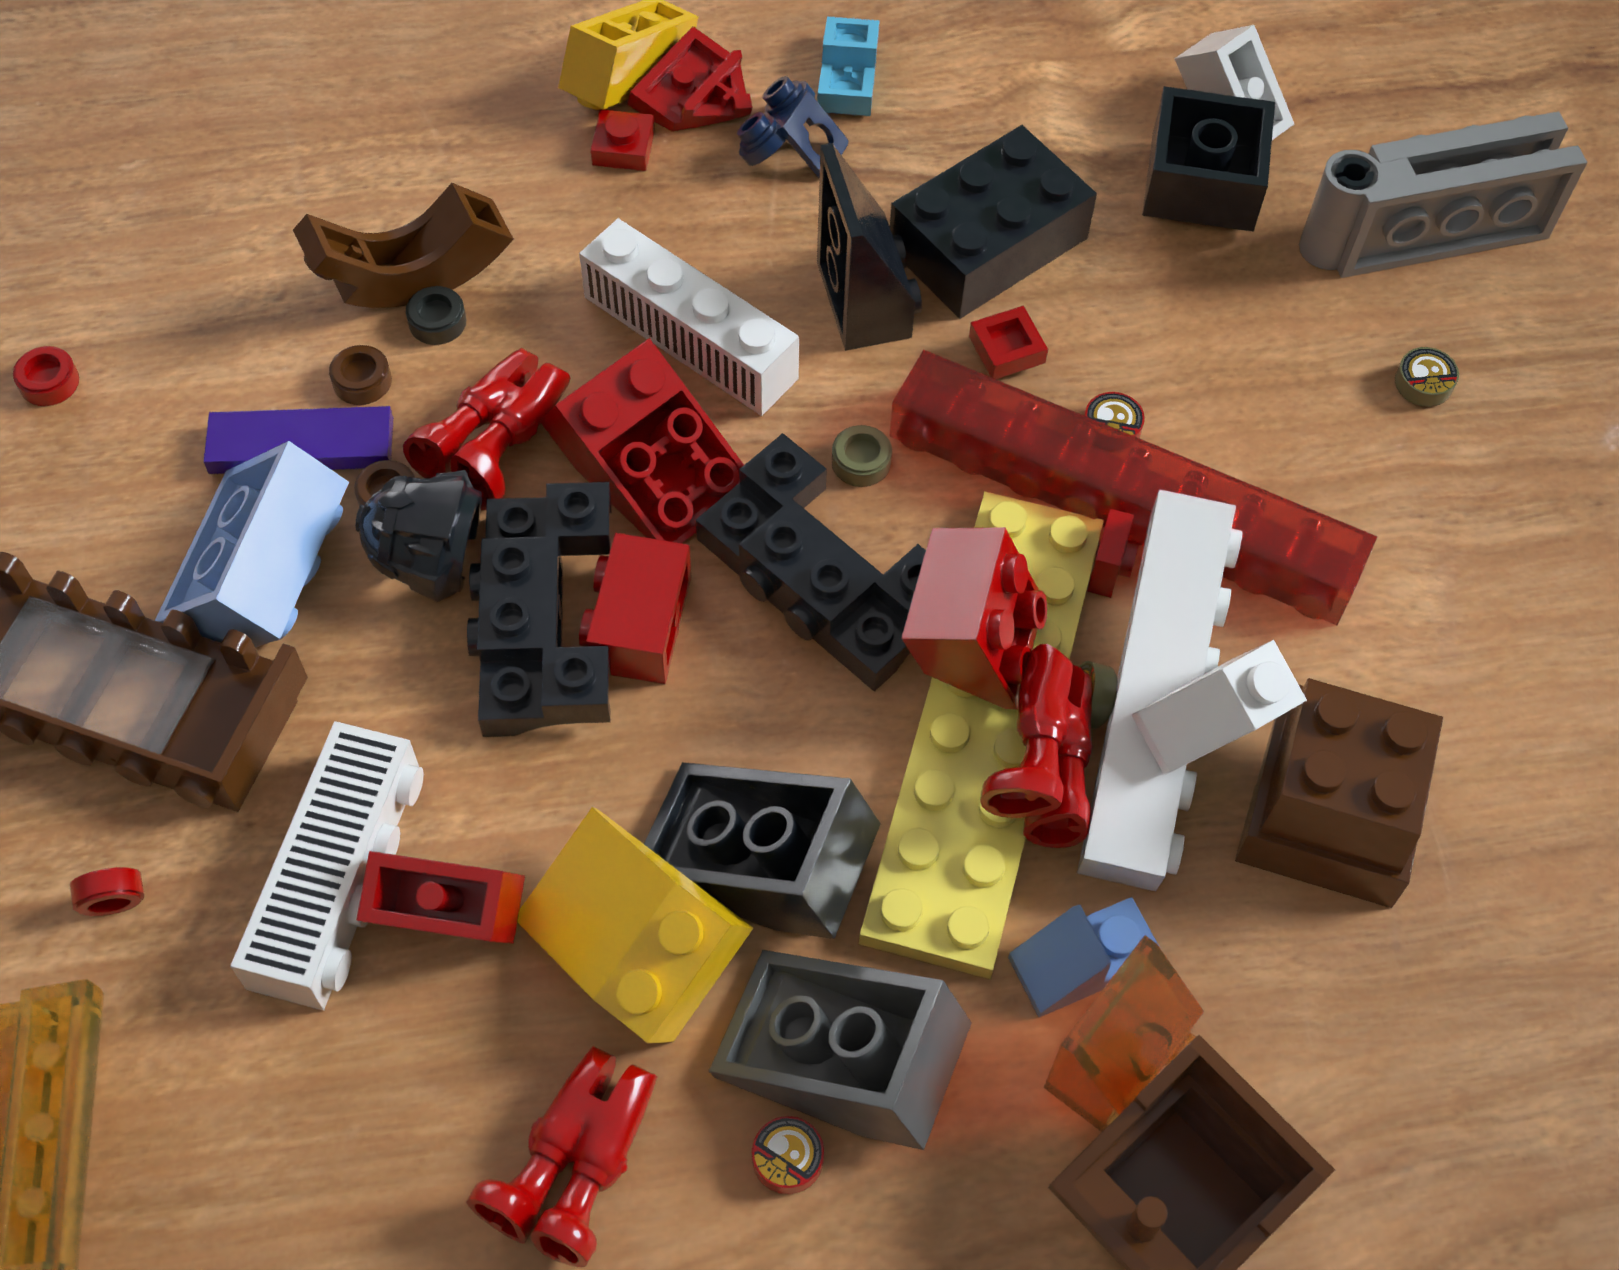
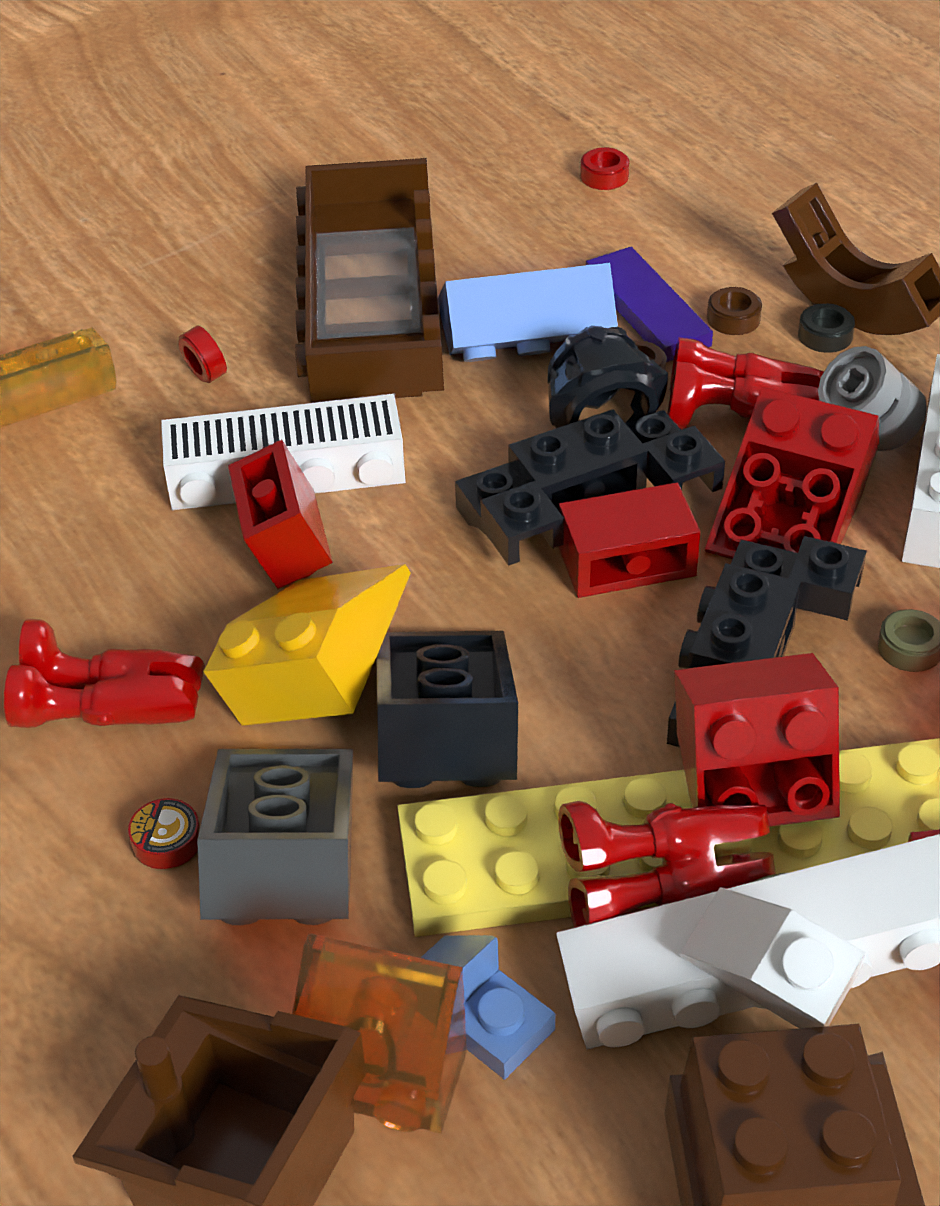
camera: 70 degrees right, 15 degrees down
(593, 330) = (872, 384): none -> light grey wheel

